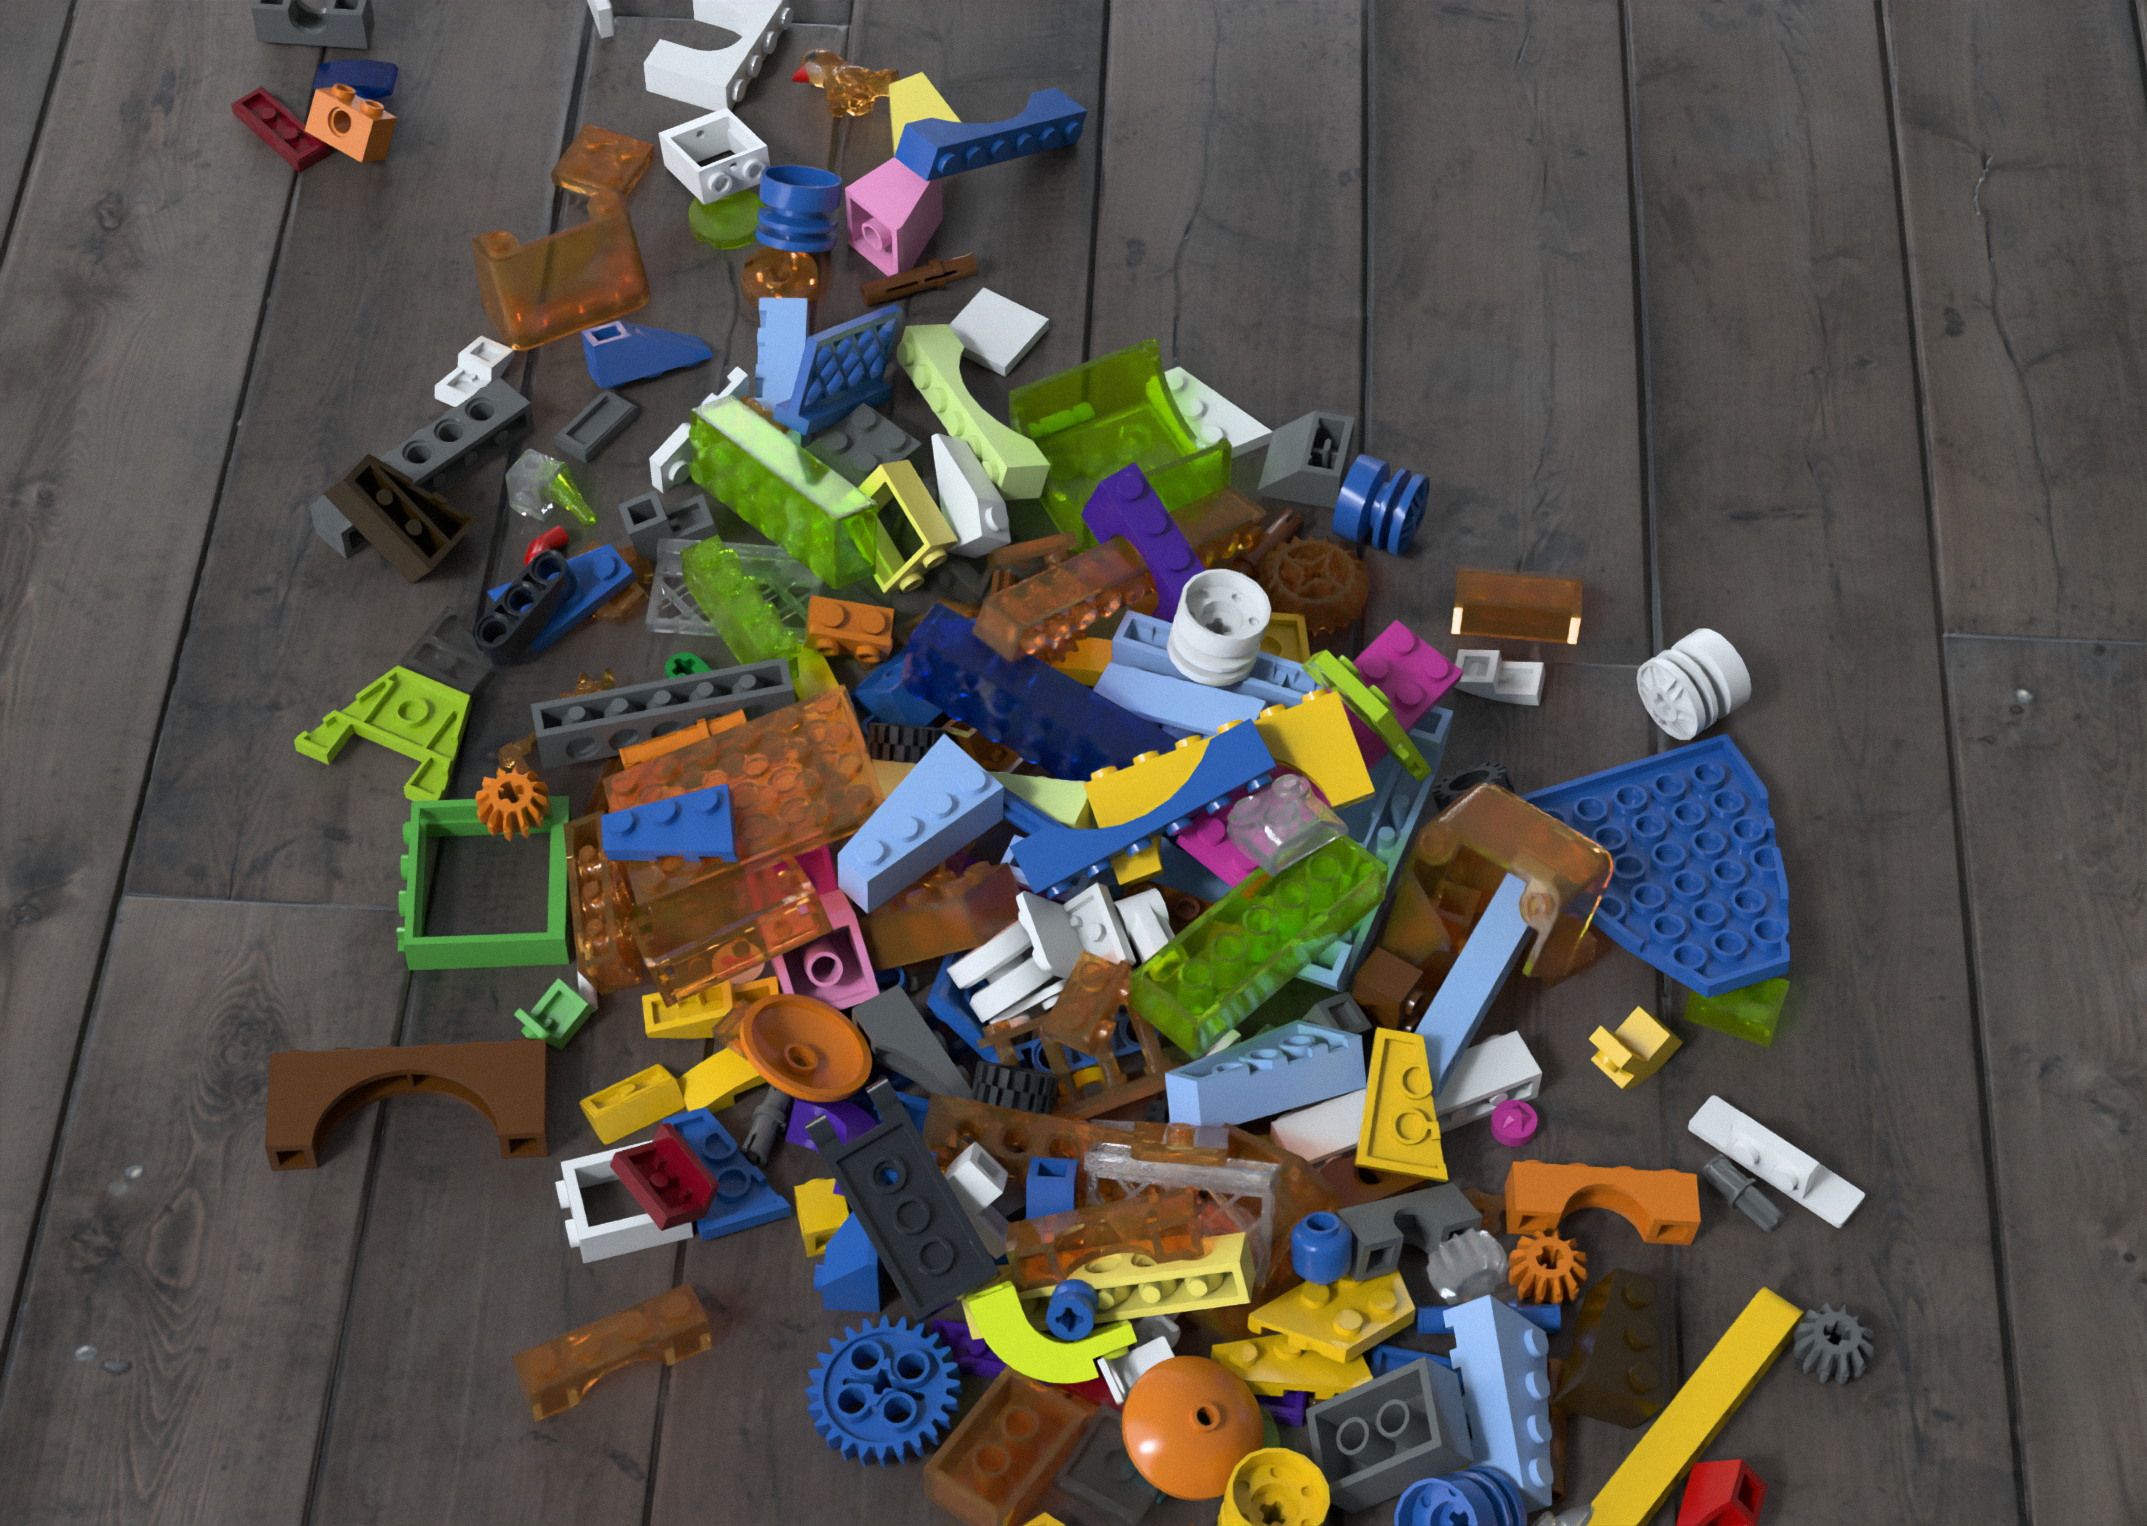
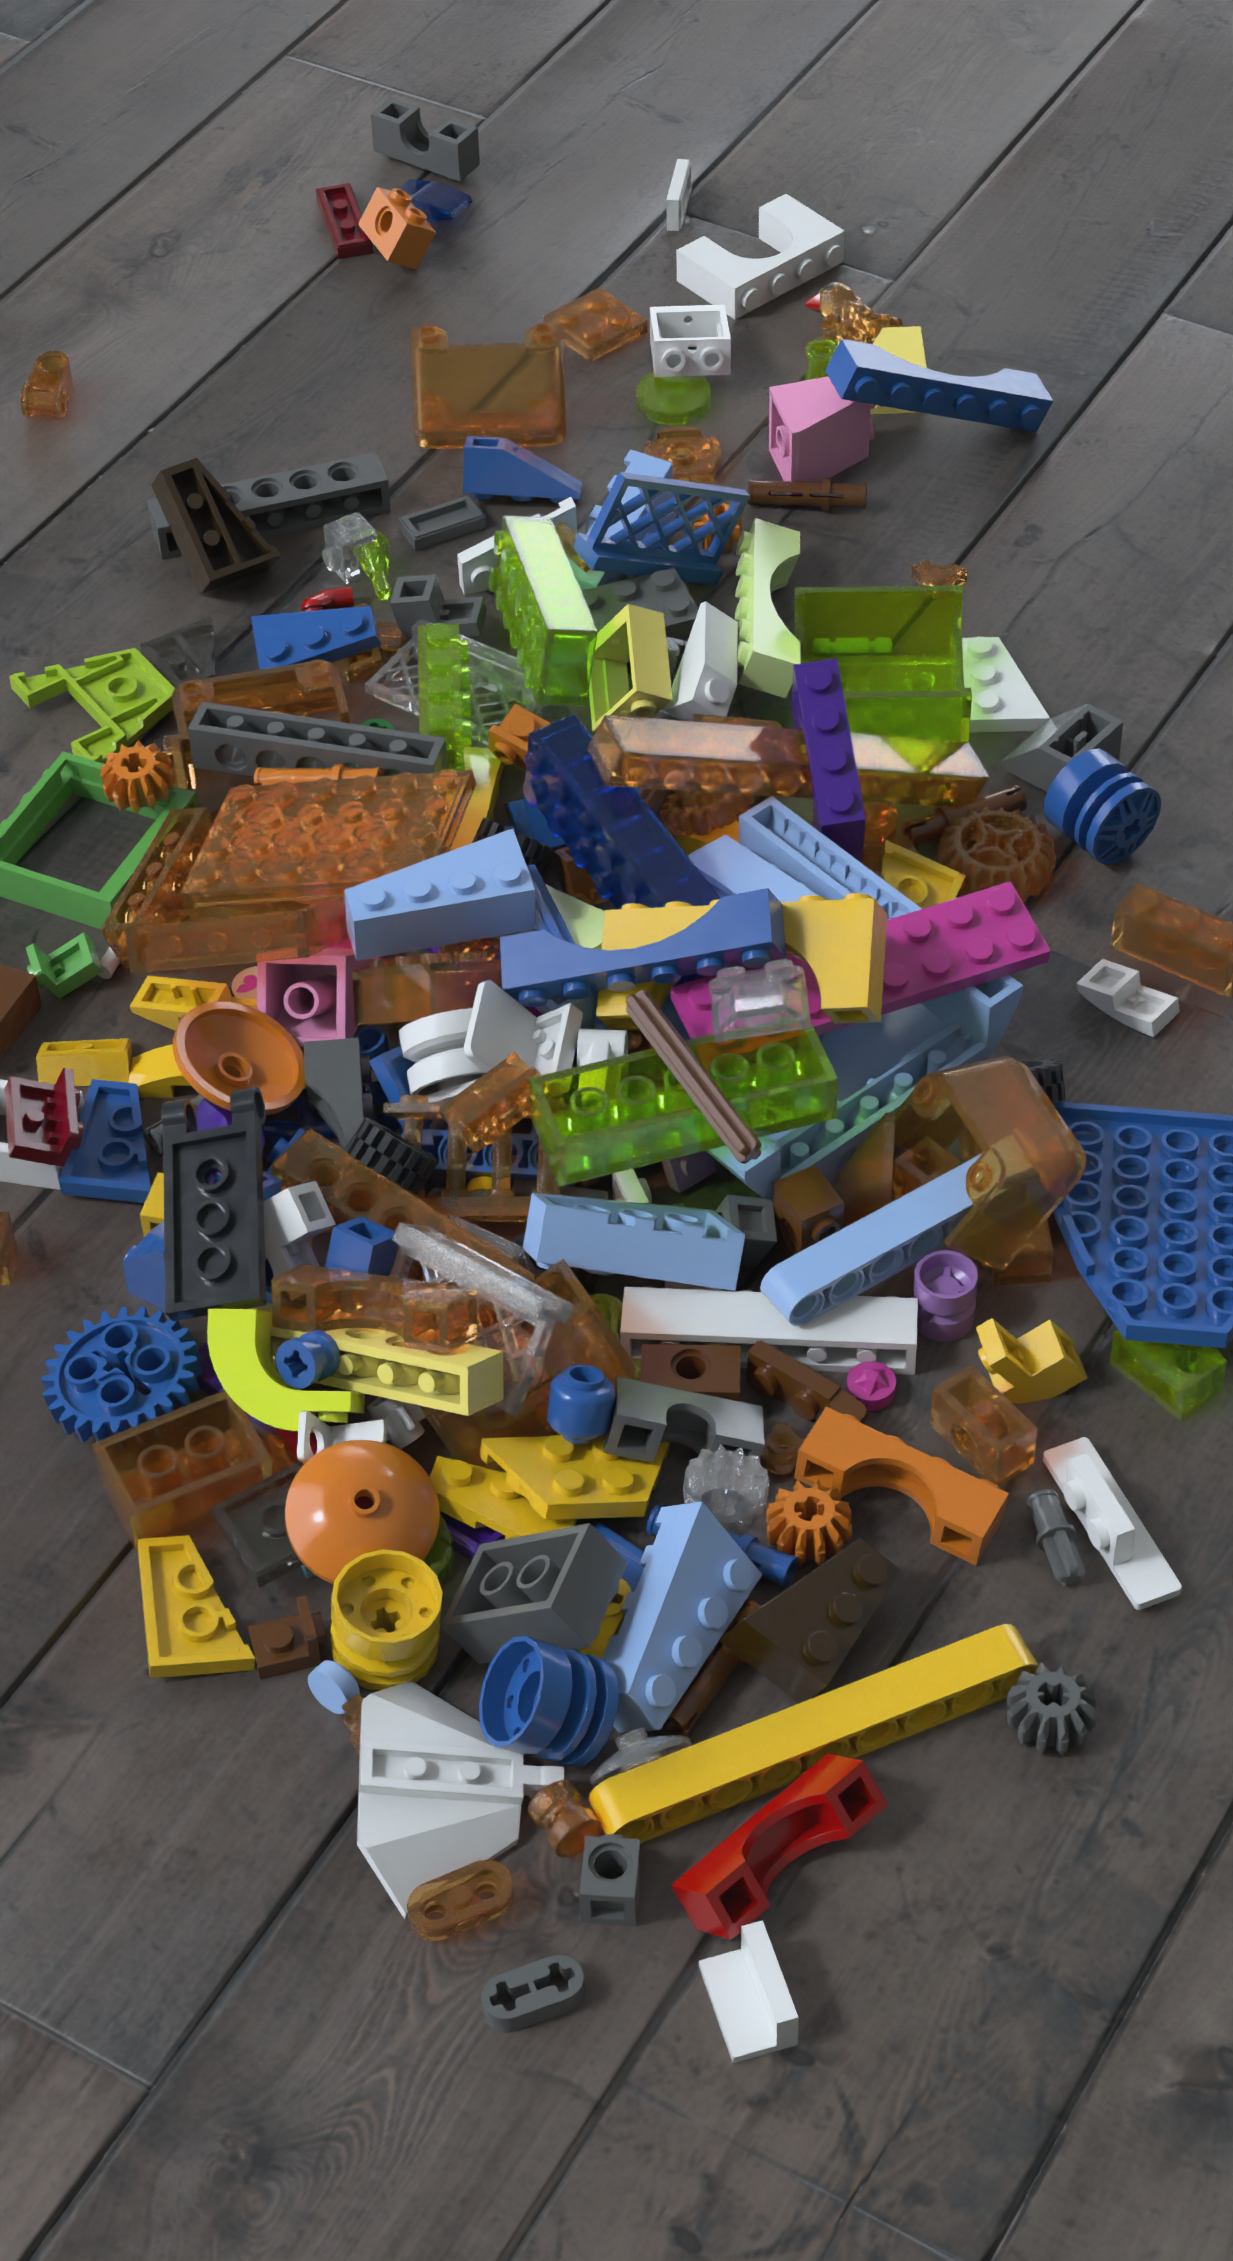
camera: 30 degrees right, 5 degrees down
(112, 411) = (48, 386): none -> clear orange piece
(477, 367) = (383, 438): white slope -> none
(528, 587) = (264, 631): black beam -> none
(555, 670) = (299, 686): none -> clear orange windscreen
(677, 826) = (249, 836): blue wing -> none
(798, 208) = (724, 405): blue wheel -> none
(848, 139) = (819, 355): none -> clear neon green bush
(997, 331) = (849, 556): white tile -> none
(1084, 323) = (936, 575): none -> clear orange tile
(1179, 1143) = (493, 1251): clear orange plate -> none
(1218, 627) = (828, 826): white wheel -> none
(1273, 916) = (693, 1077): none -> axle
(1369, 706) = (919, 944): lime wing -> none
(1398, 1111) = (739, 1314): yellow wing -> none
(1483, 1153) = (797, 1385): none -> reddish brown hinge
(1534, 1010) = (946, 1295): none -> medium lavender wheel
(1636, 1122) = (983, 1426): none -> clear orange brick

